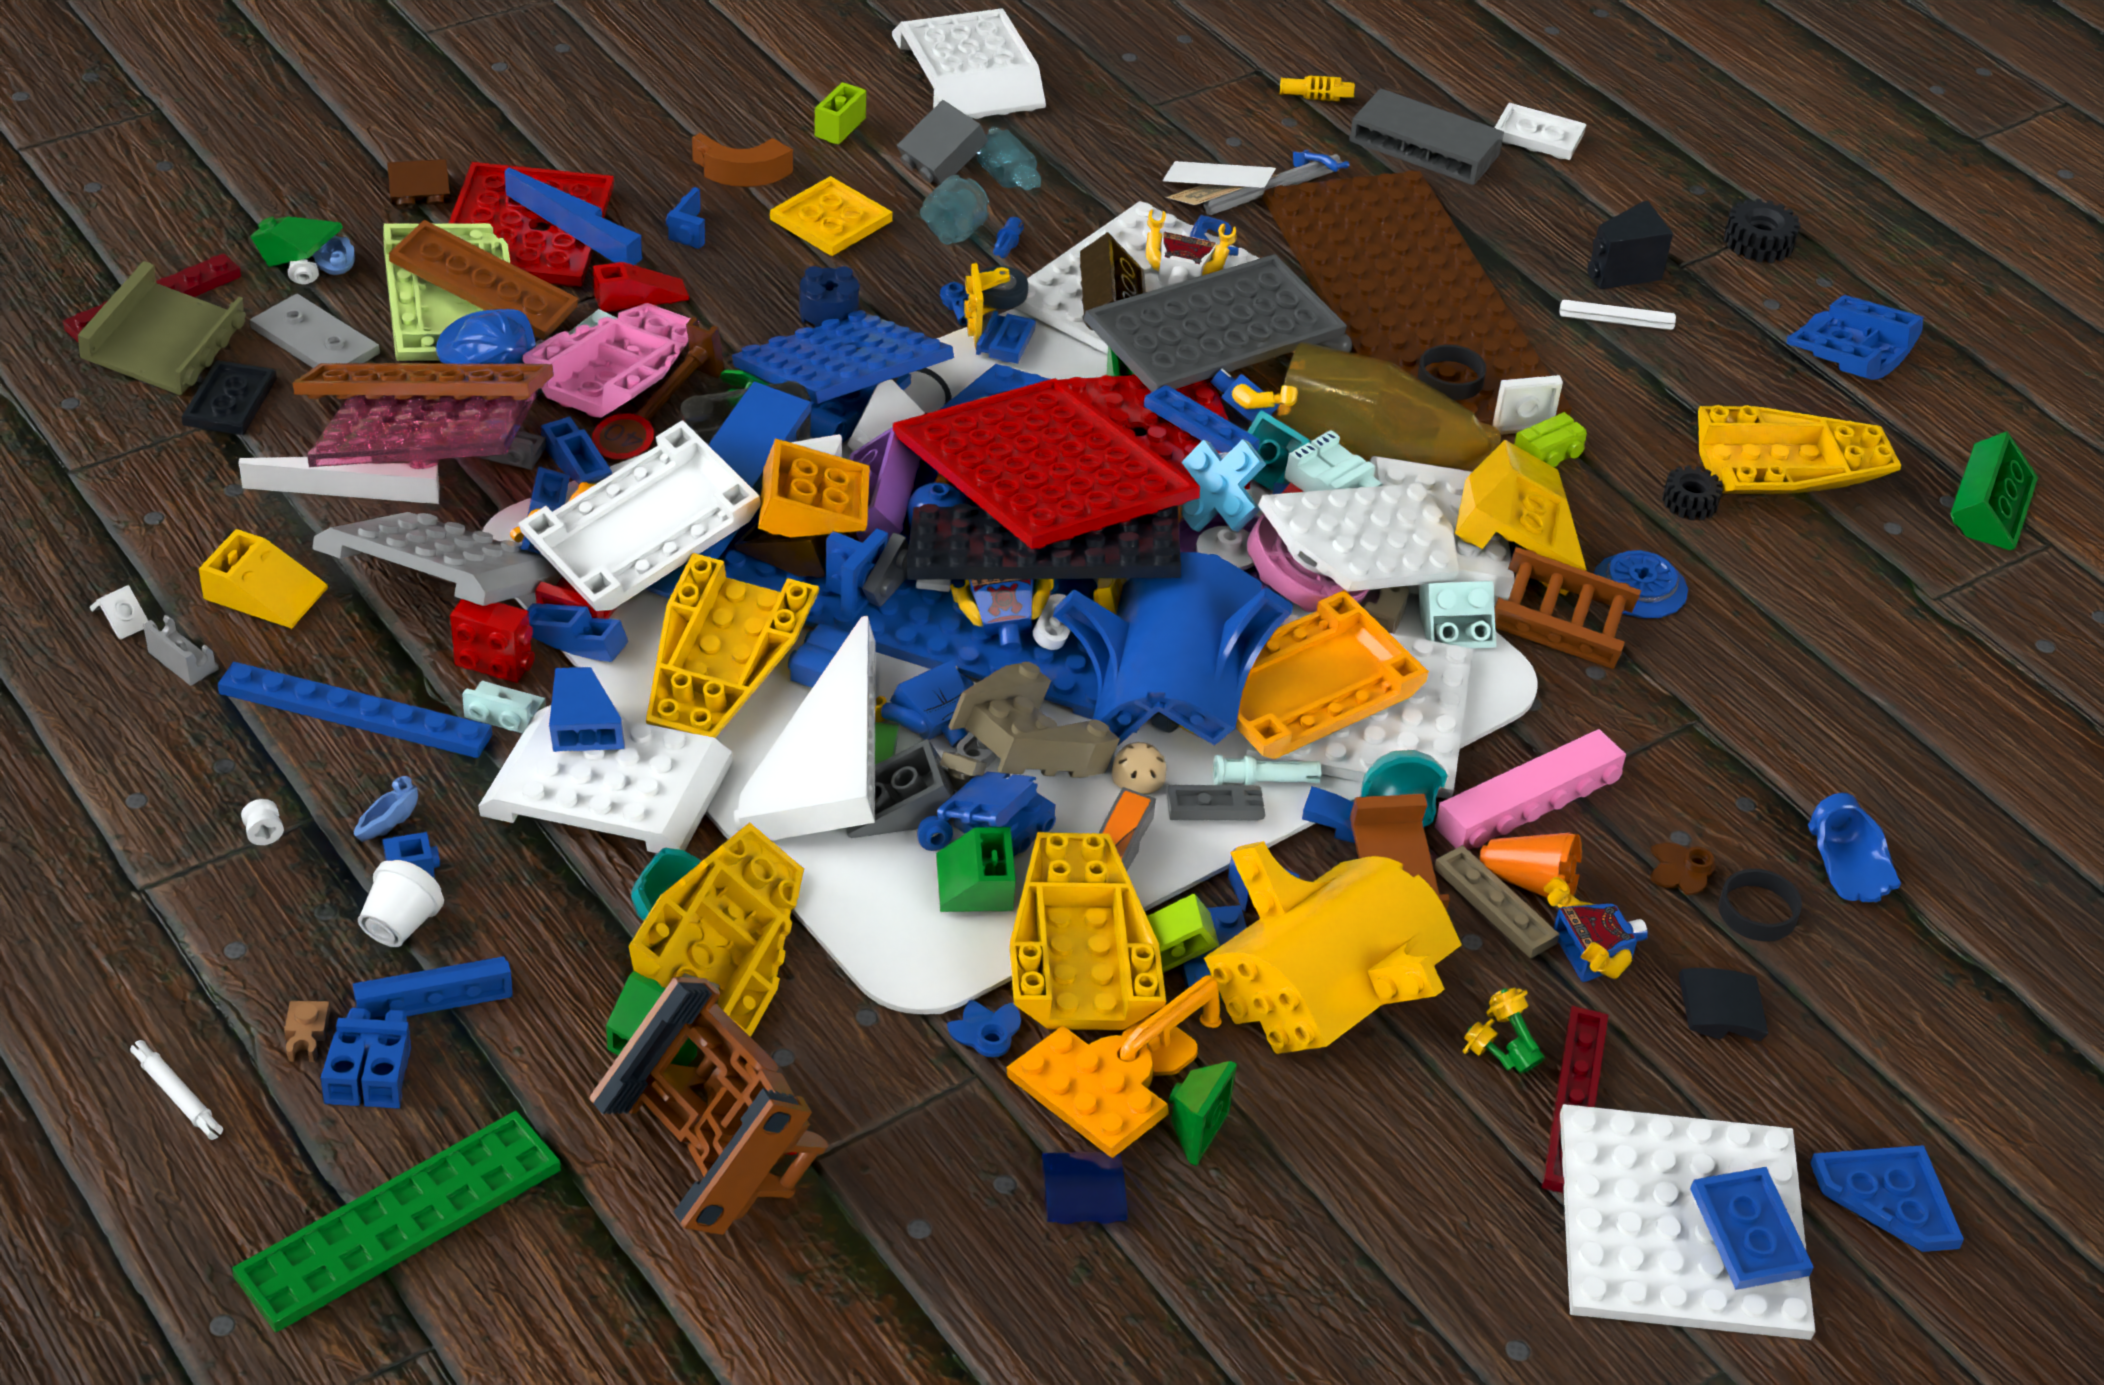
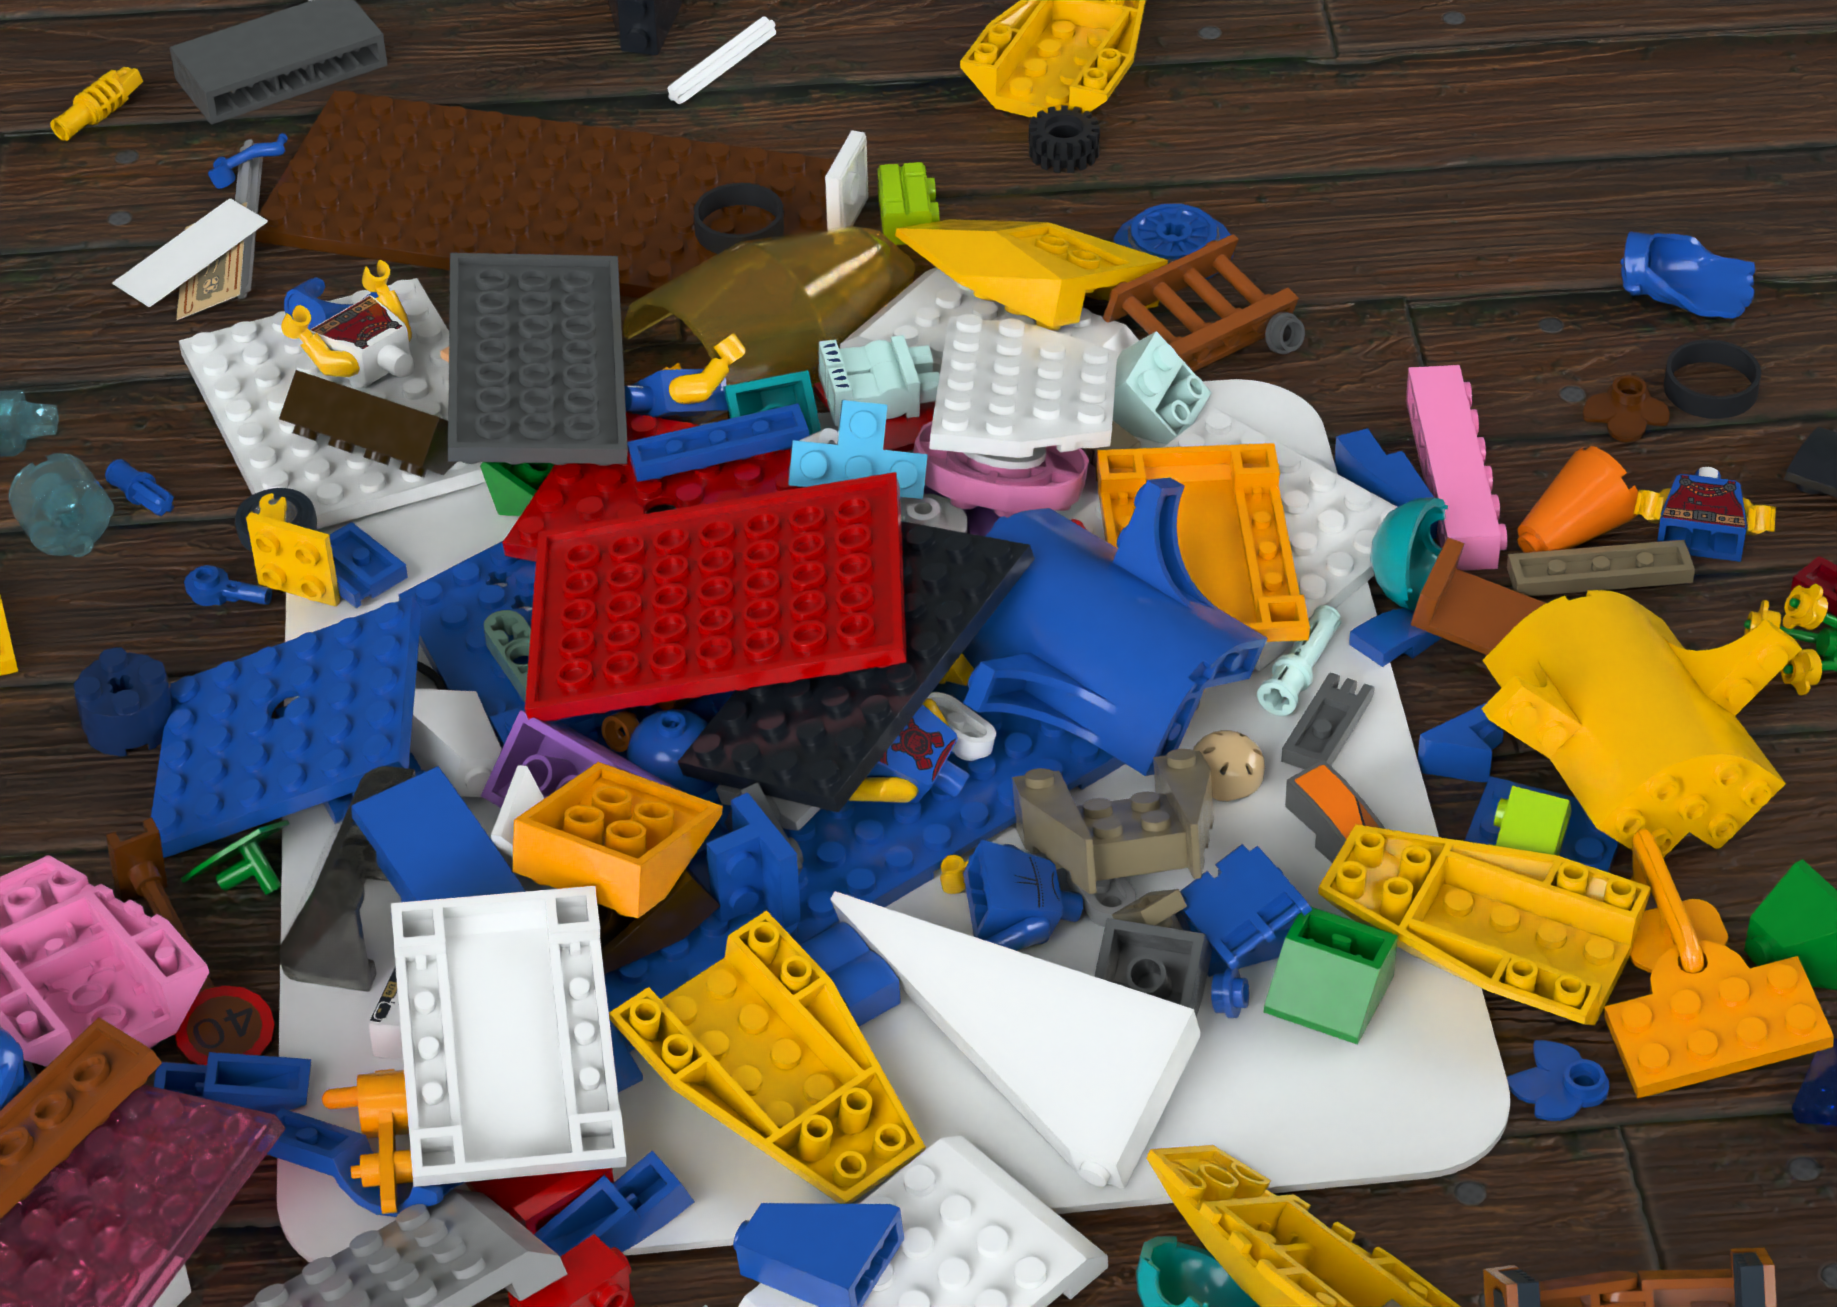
camera: 55 degrees left, 0 degrees up
(1488, 753) = (1387, 476): none -> blue slope
(1591, 672) = (1284, 333): none -> dark grey plate

